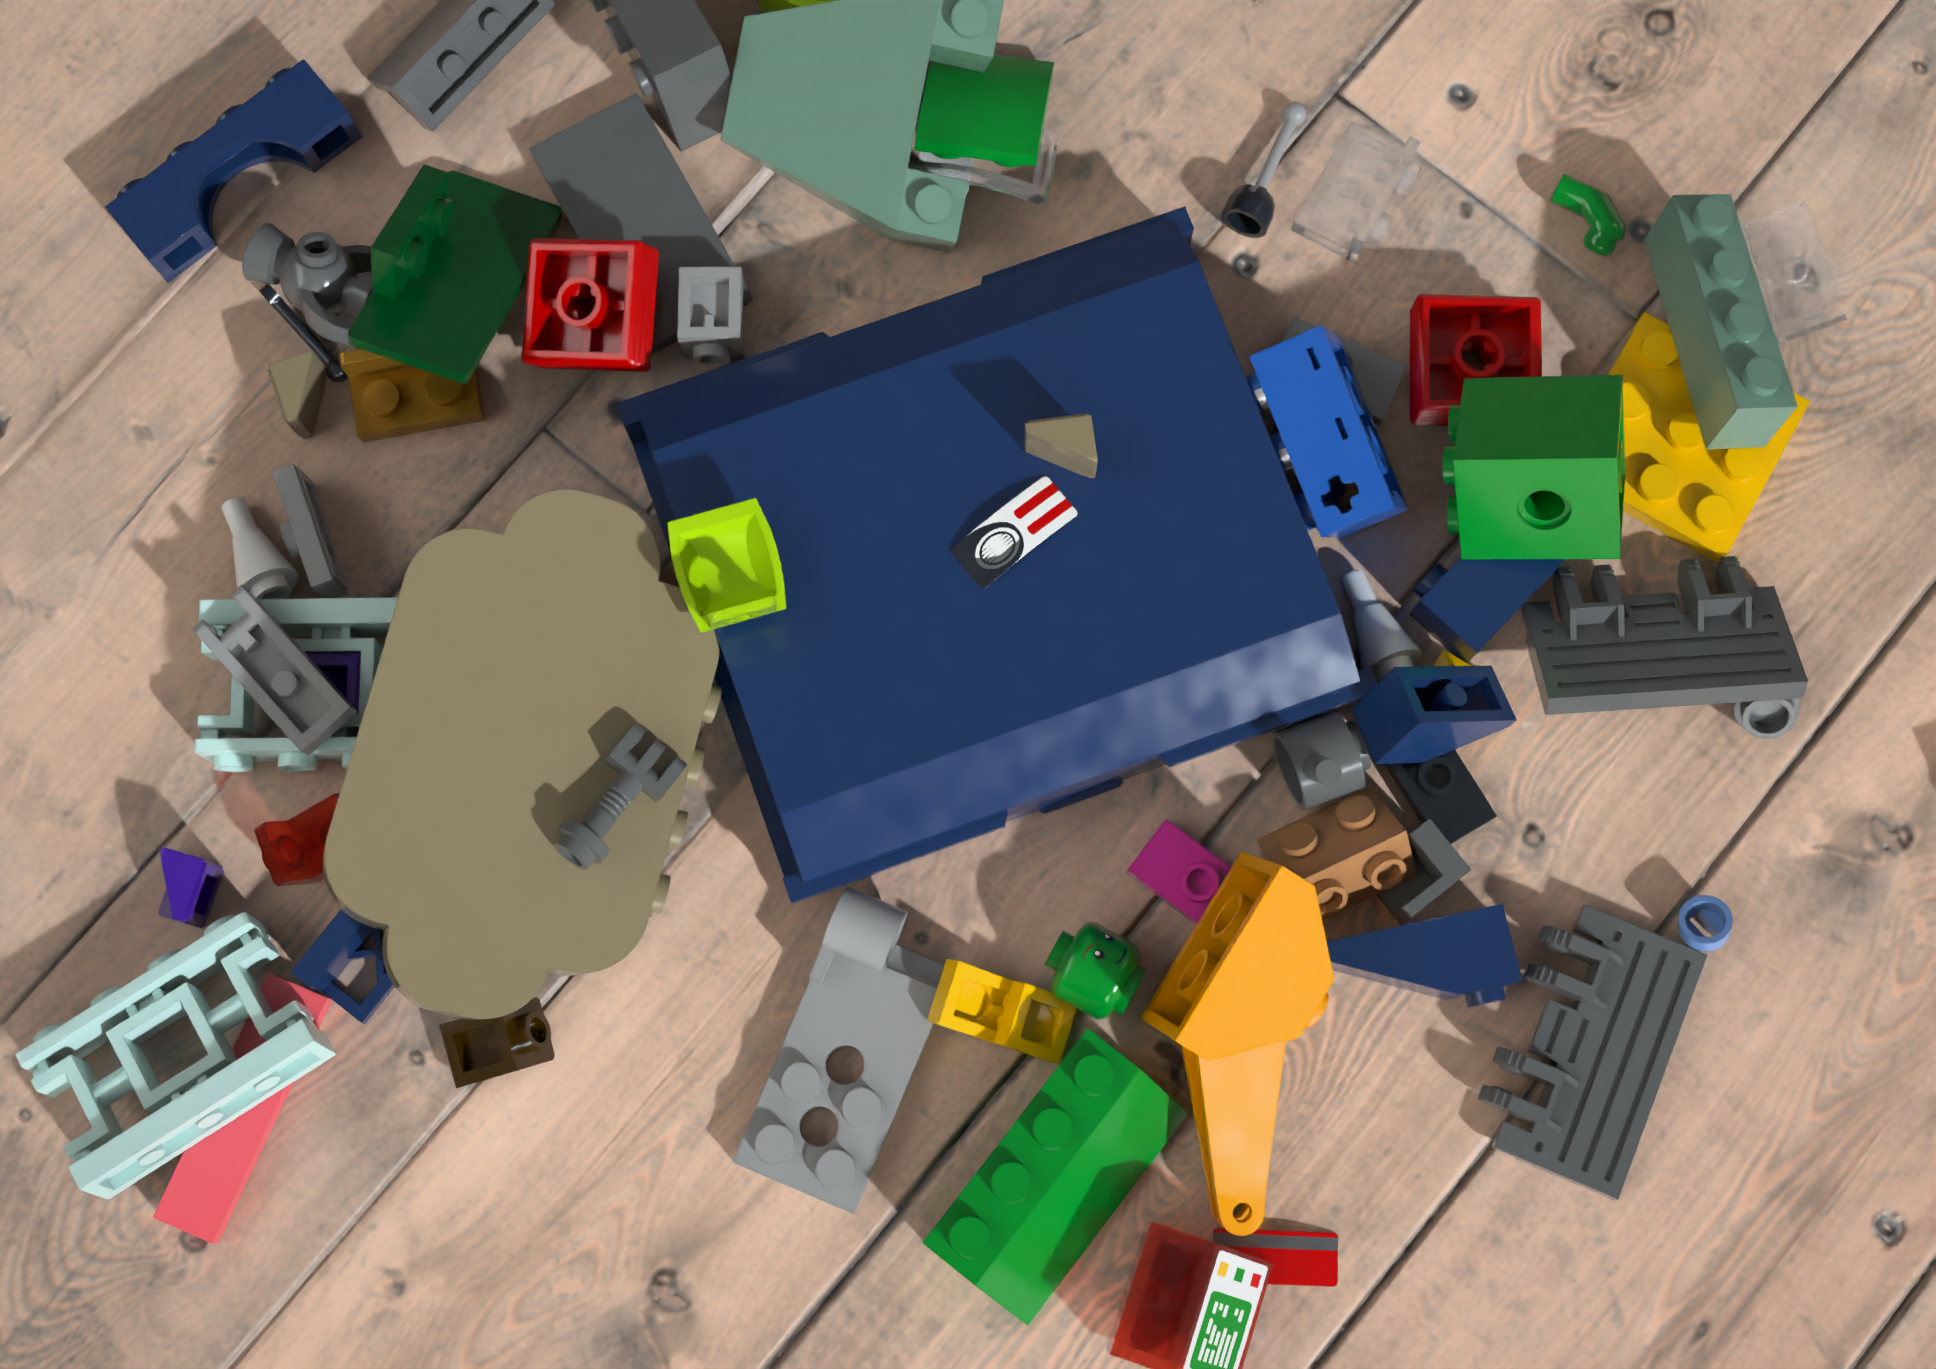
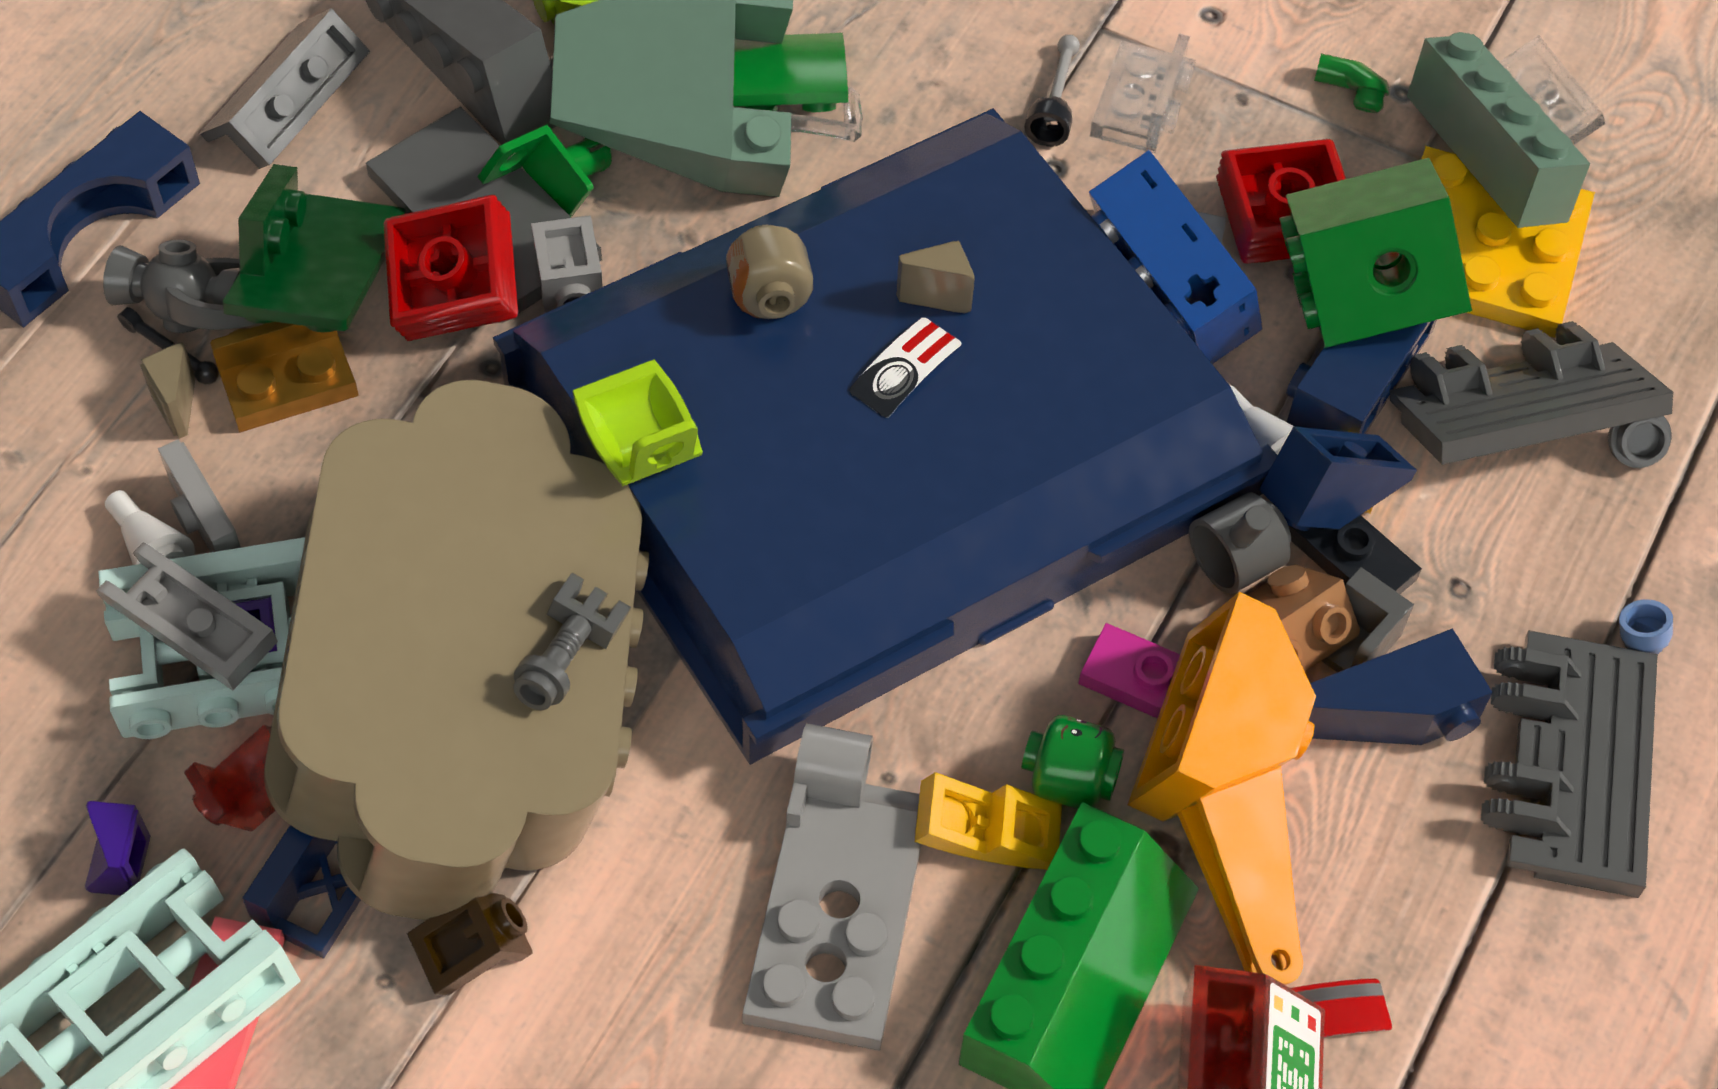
camera: 15 degrees left, 20 degrees down
(719, 193) = (553, 167): none -> green bracket
(893, 408) = (769, 267): none -> dark tan head

